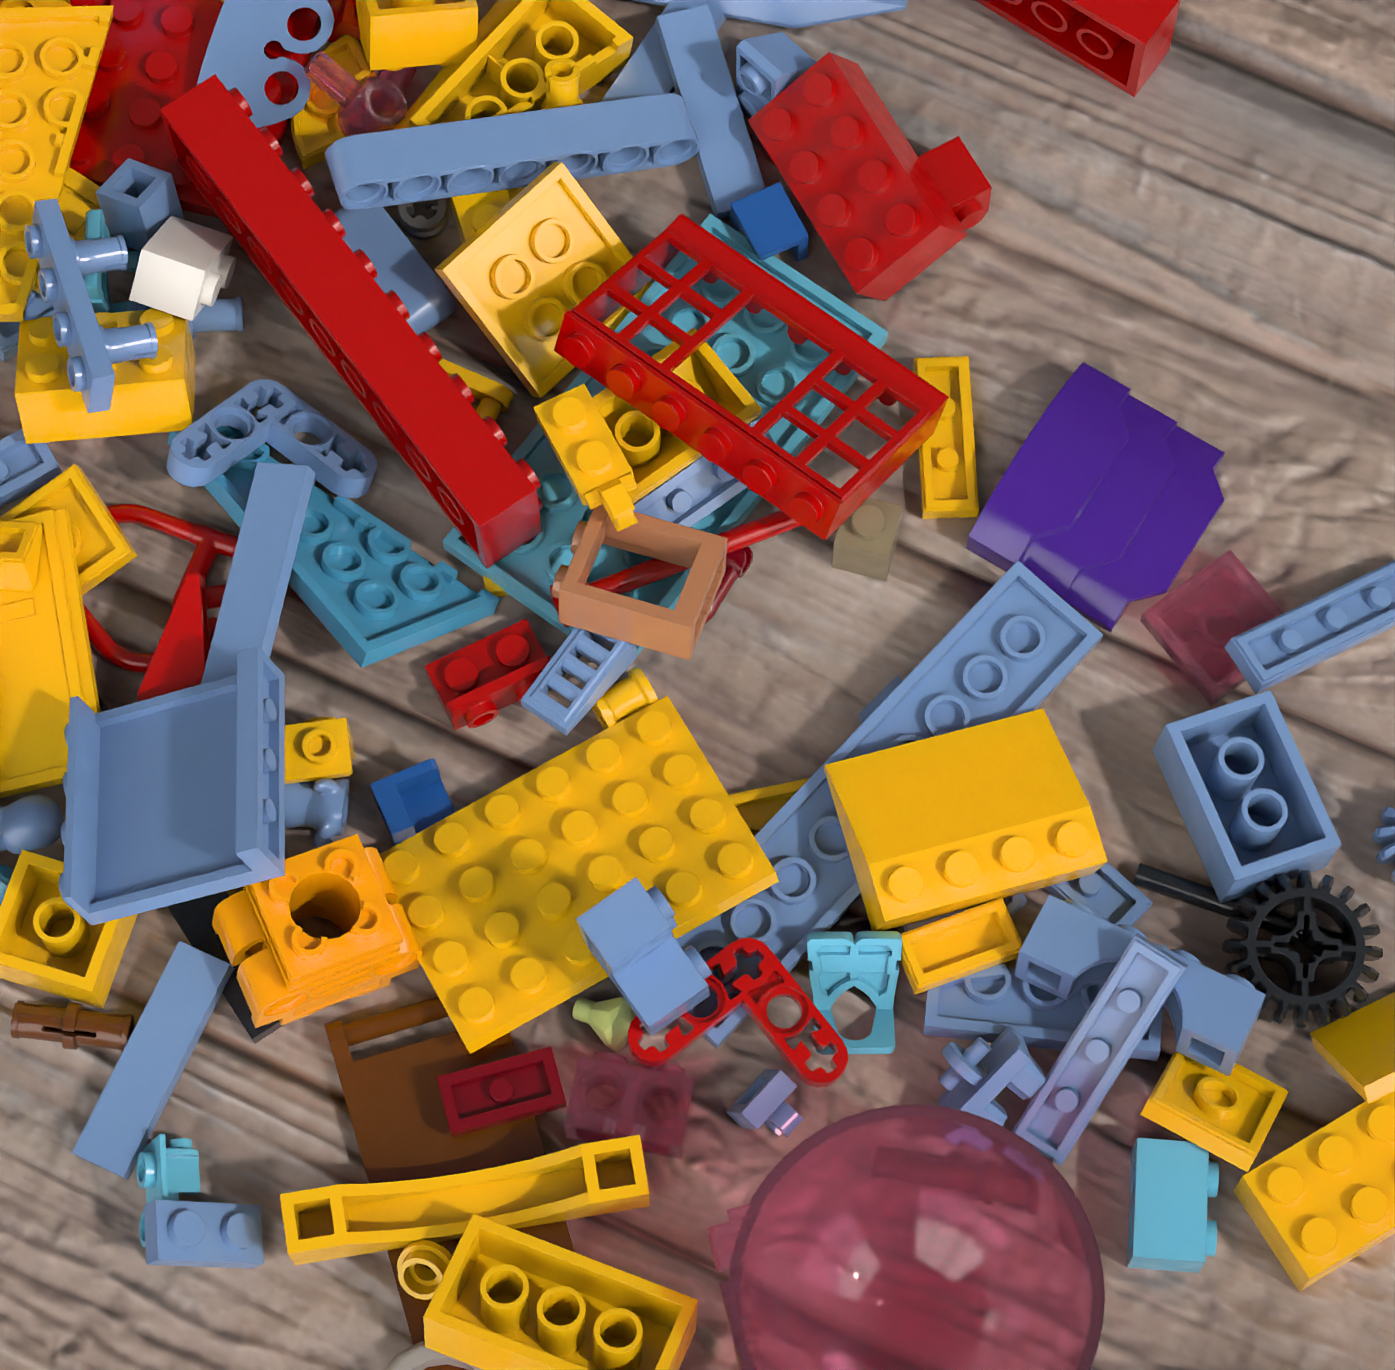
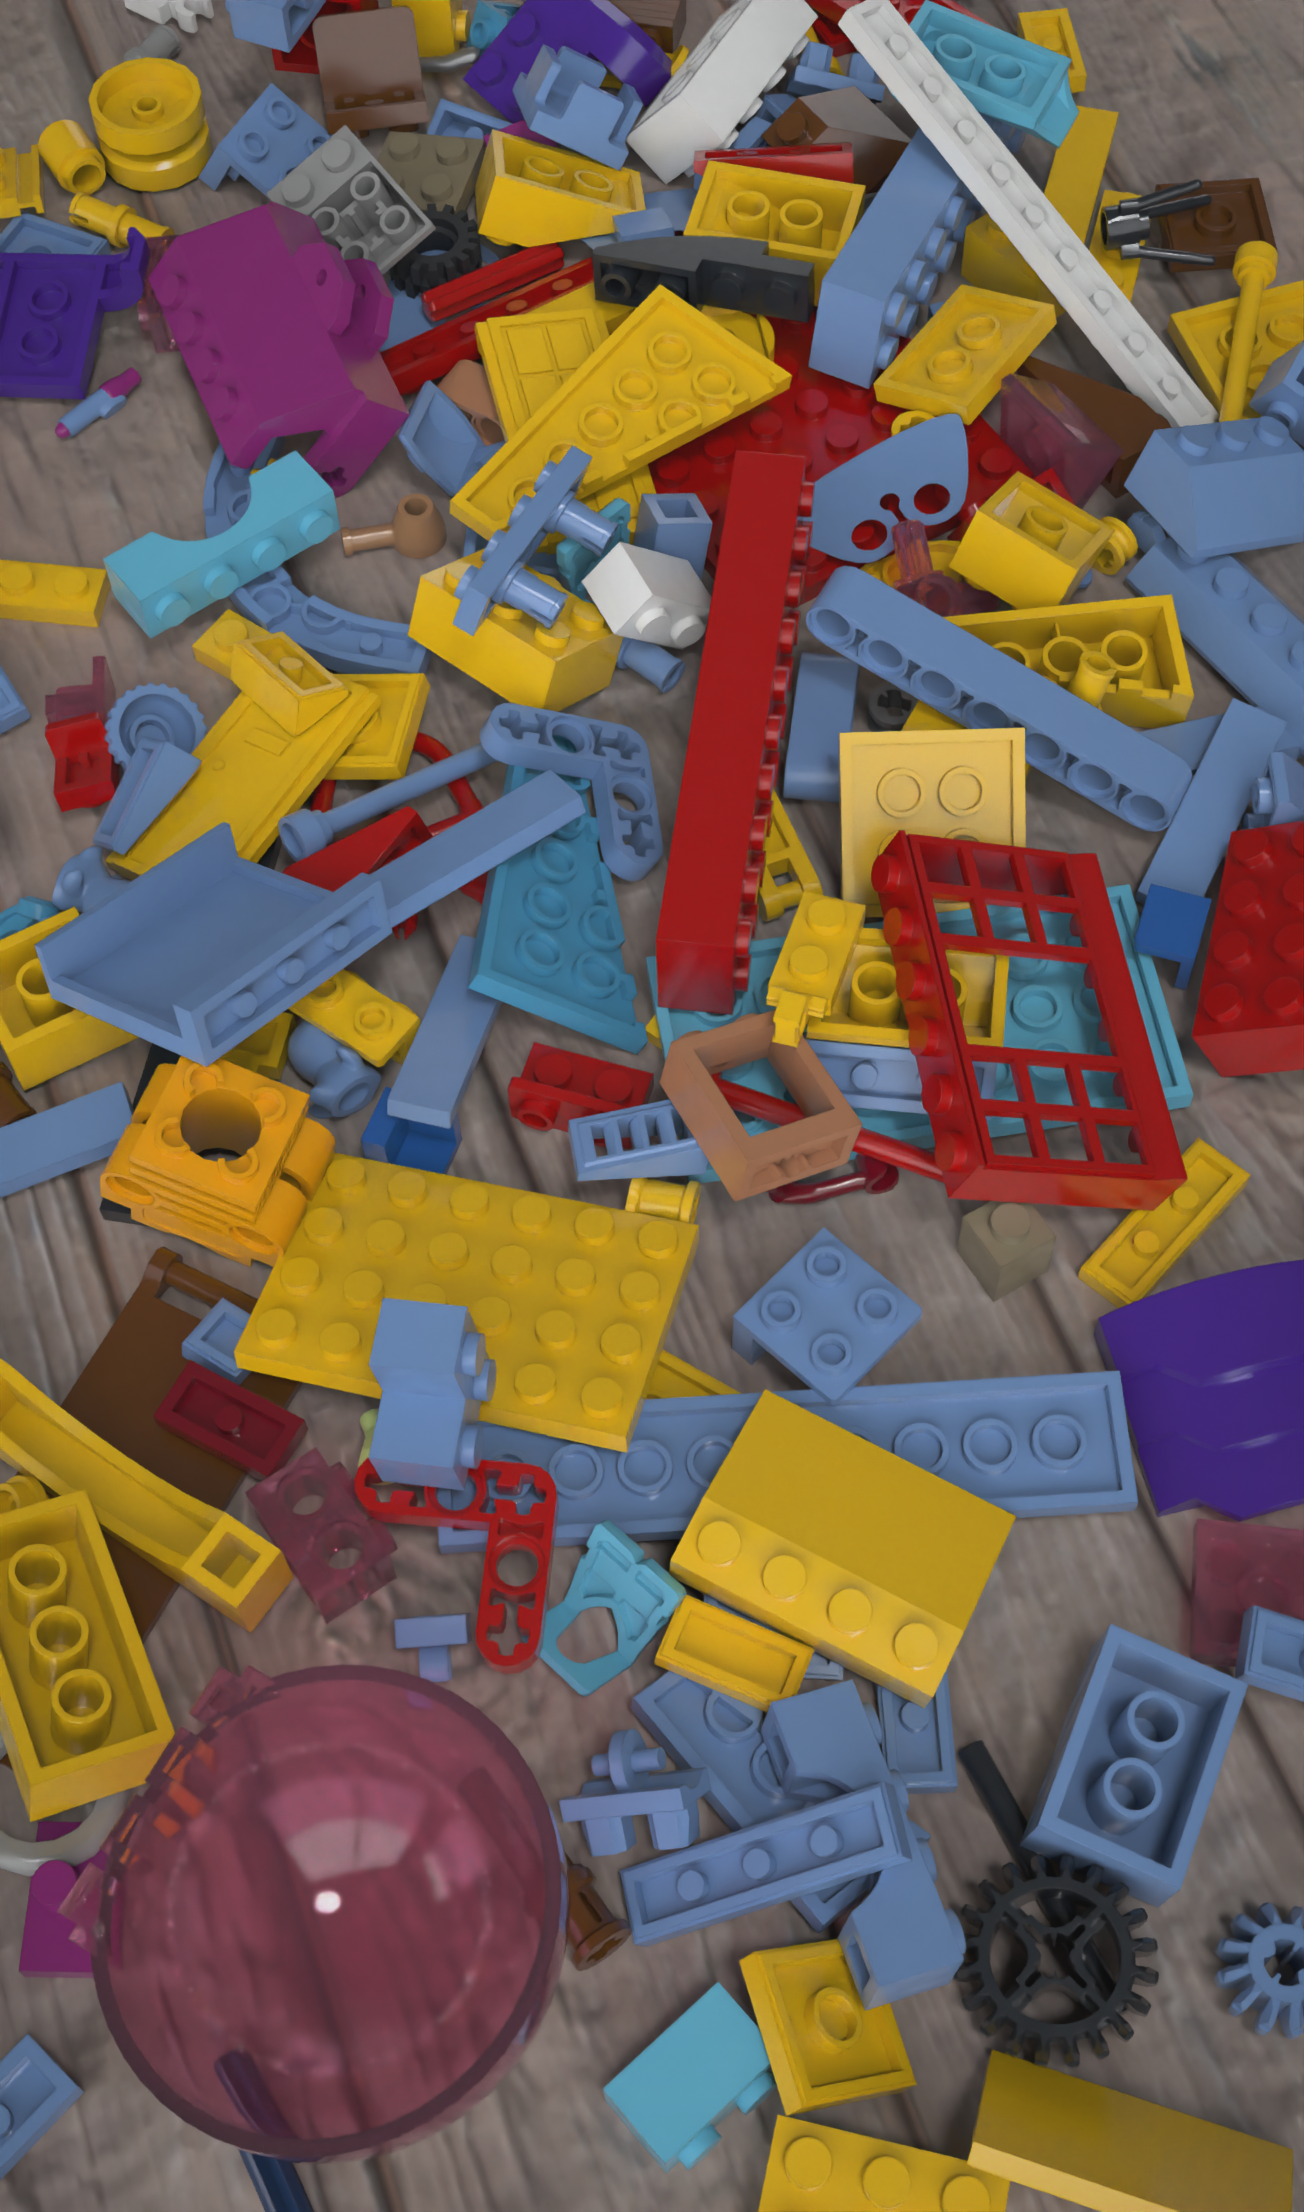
camera: 45 degrees right, 10 degrees down
(127, 653) = (312, 831): none -> medium blue piece
(374, 714) = (445, 1046): none -> medium blue tile
(437, 1046) = (215, 1340): none -> medium blue tile
(811, 685) = (825, 1317): none -> medium blue bracket

